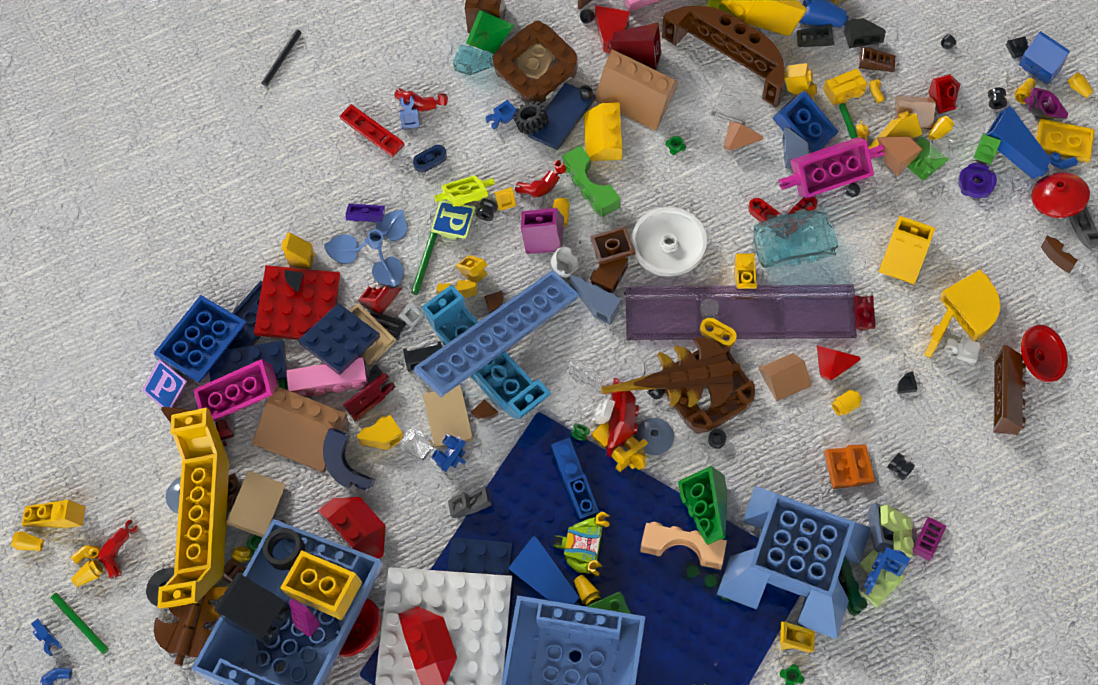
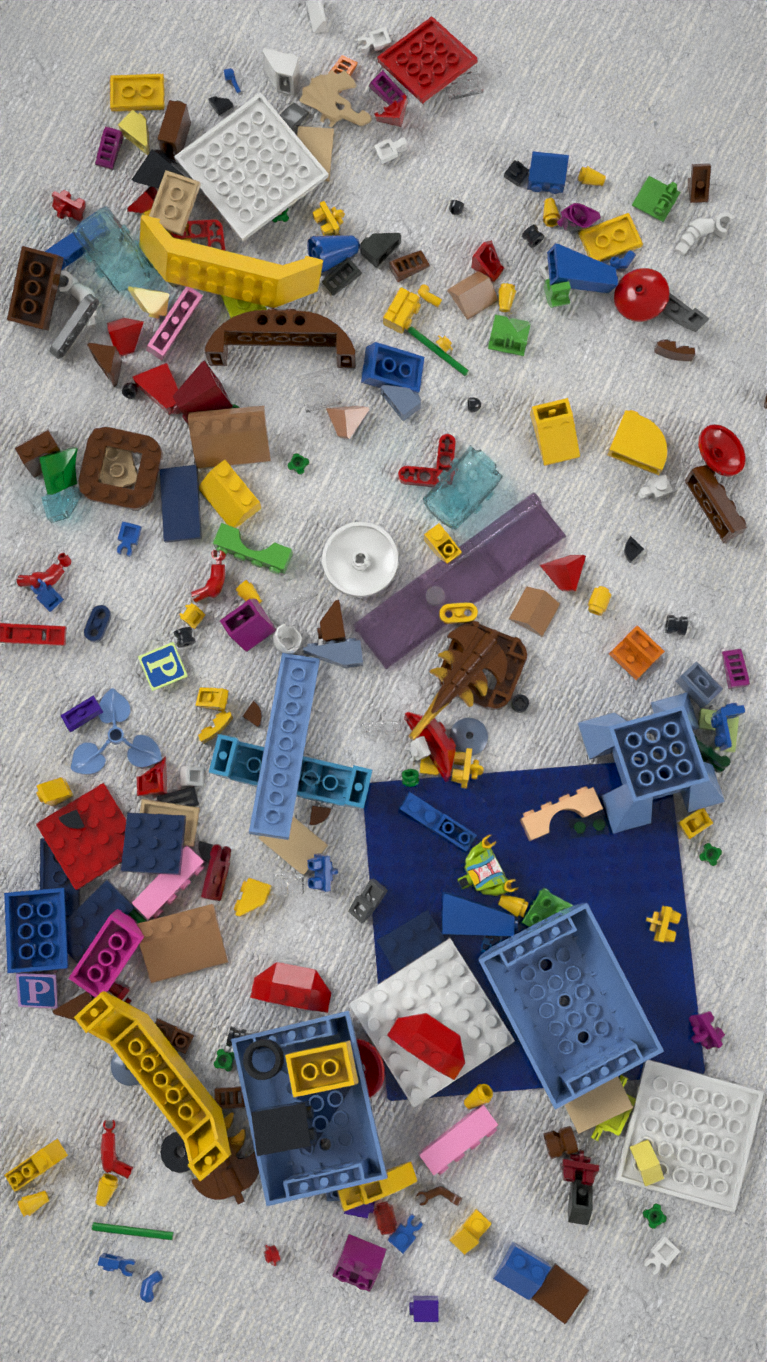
camera: 40 degrees left, 15 degrees up
(86, 551) = (88, 1172): yellow arm -> none
(242, 554) = (219, 1078): yellow plate -> none
(255, 504) = (198, 1031): tan tile -> none
(303, 618) = (329, 1104): magenta slope -> none
(336, 463) = (239, 950): dark blue arch -> none
(416, 356) = (233, 804): black hinge -> none
(424, 263) = (167, 721): green bar -> none
(464, 190) = (153, 634): neon yellow plate -> none
(527, 111) = (150, 518): black tyre -> none
(586, 93) = (188, 471): black hinge -> none
(612, 245) = (317, 597): reddish brown slope -> none
(707, 502) = (553, 765): green wedge -> none
(800, 79) = (363, 332): yellow slope -> none
(832, 167) = (446, 398): dark pink brick -> none
(864, 312) = (560, 511): dark red hips -> none
(899, 152) = (490, 345): nougat slope -> none
(900, 526) = (710, 676): yellowish green plate -> none
(904, 126) = (474, 327): yellow slope -> none
(938, 332) = (631, 489): yellow plate -> none
(977, 190) = (564, 336): dark purple plate -> none

